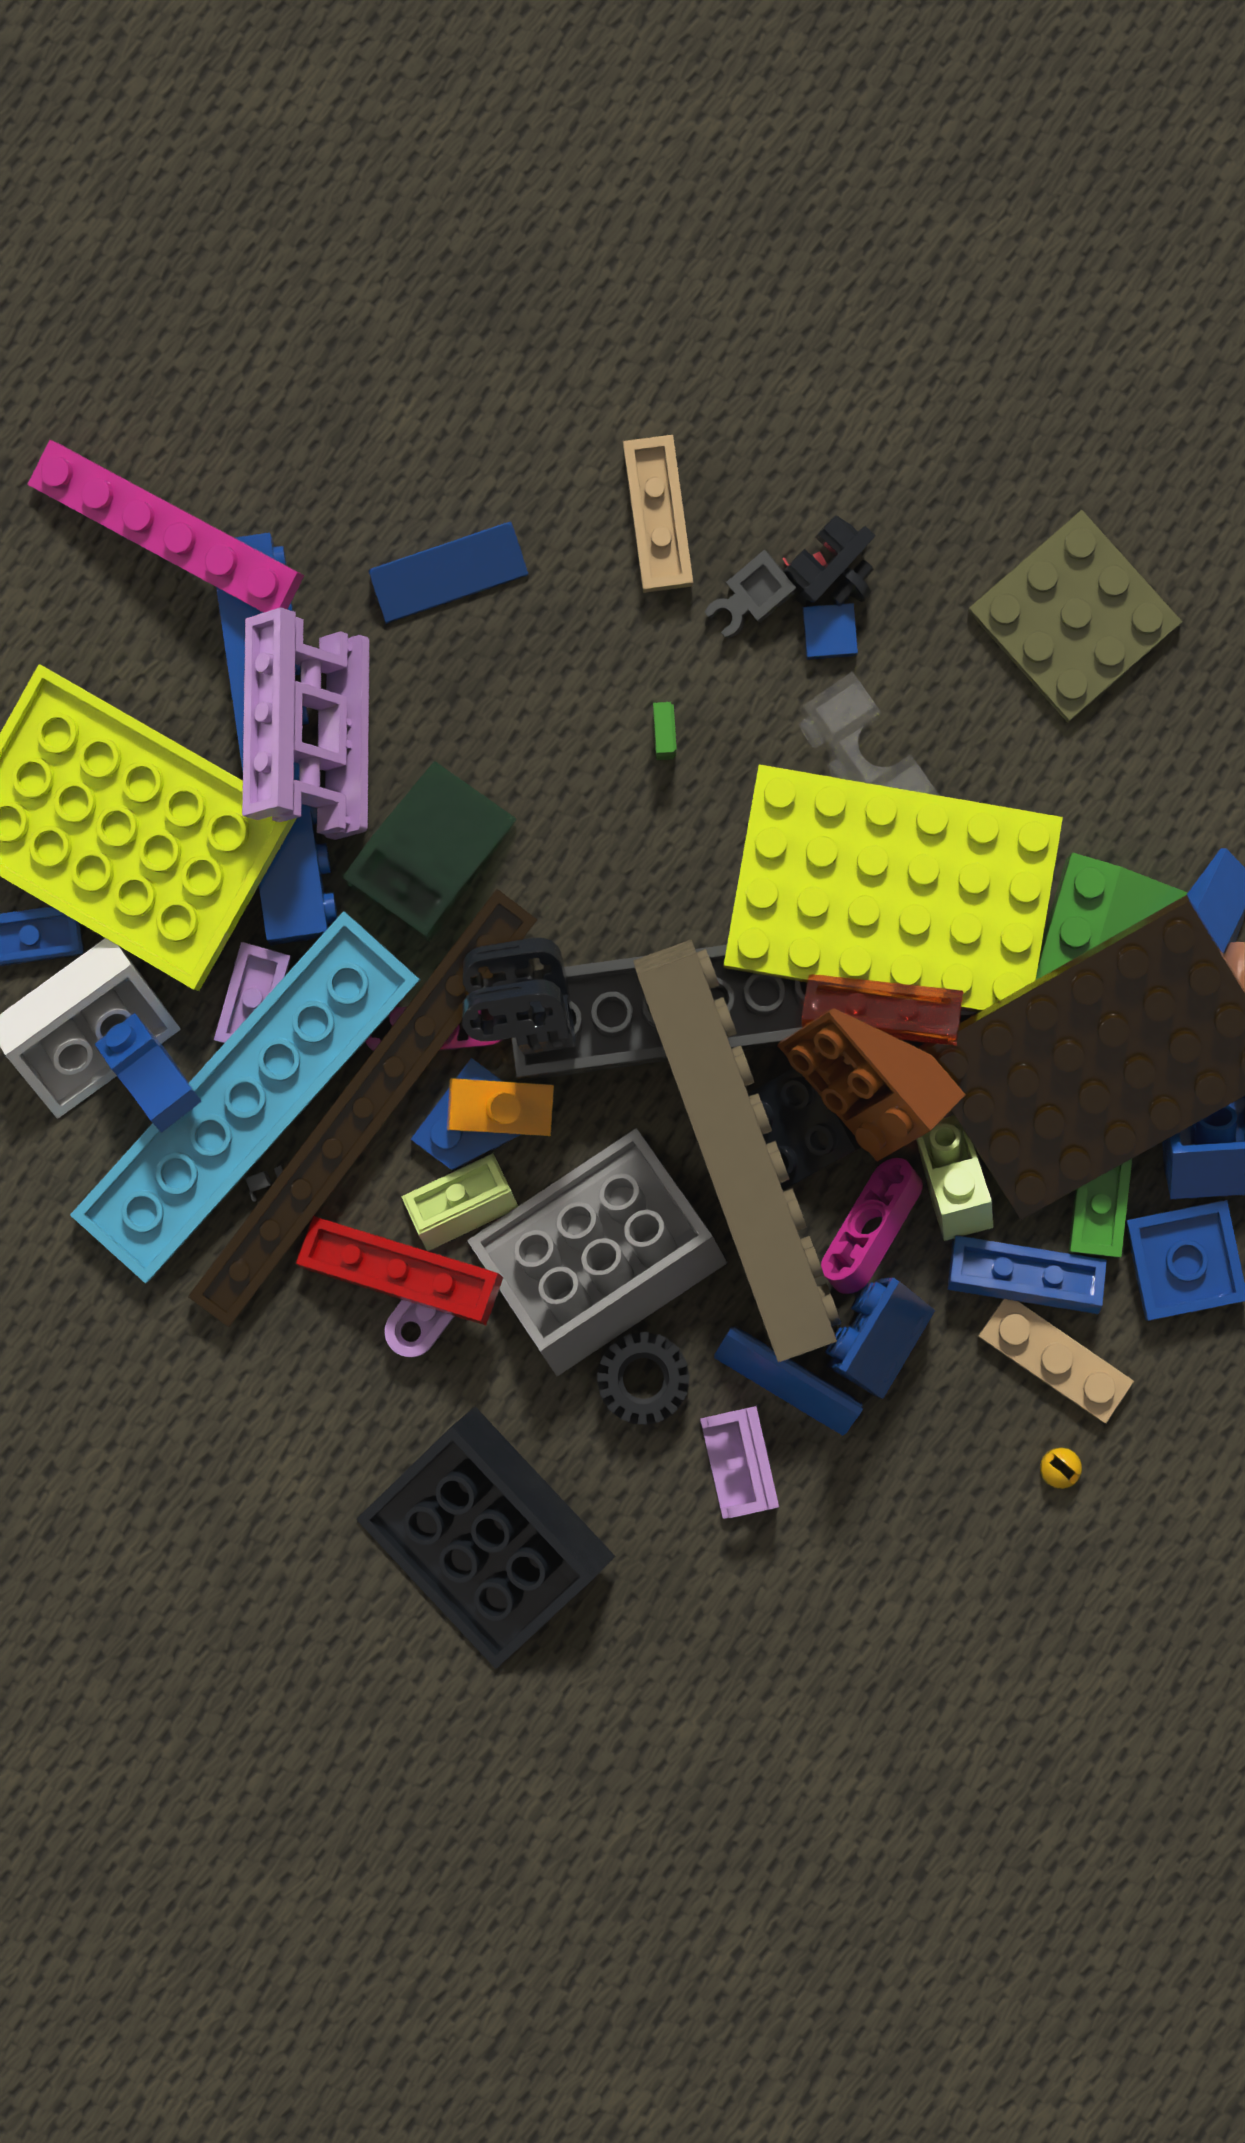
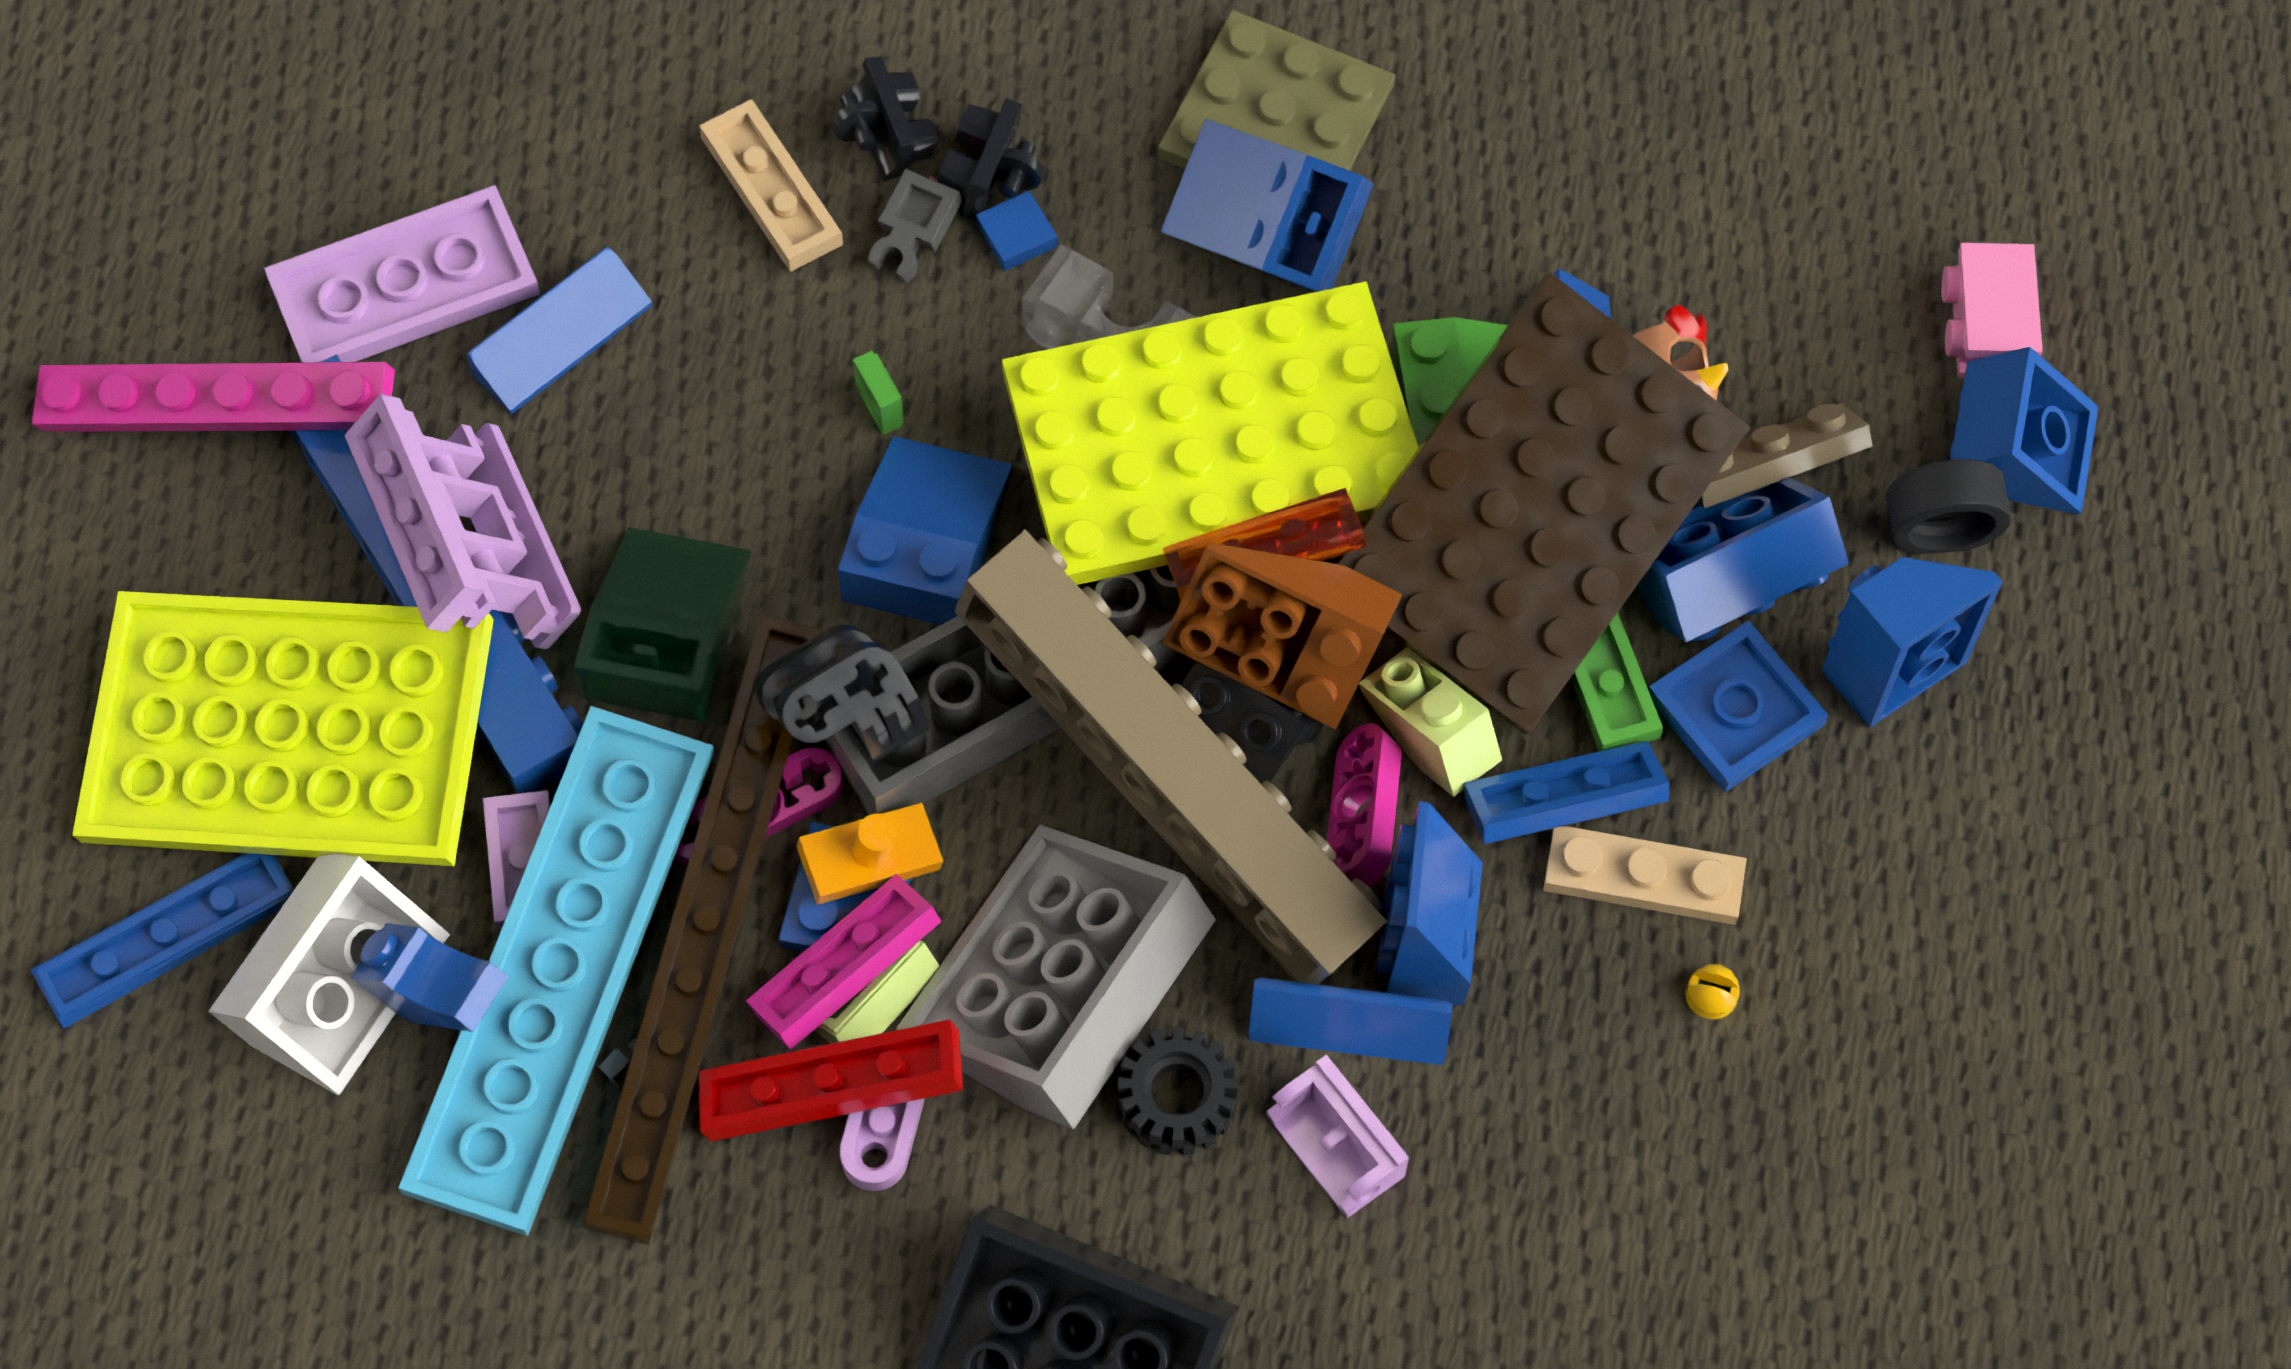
camera: 25 degrees left, 20 degrees down
(346, 478) = (403, 280): none -> lavender plate
(446, 1182) = (843, 961): none -> dark pink plate
(653, 856) = (922, 530): none -> blue slope
(761, 493) = (877, 120): none -> black hips
(1024, 705) = (1267, 206): none -> blue slope

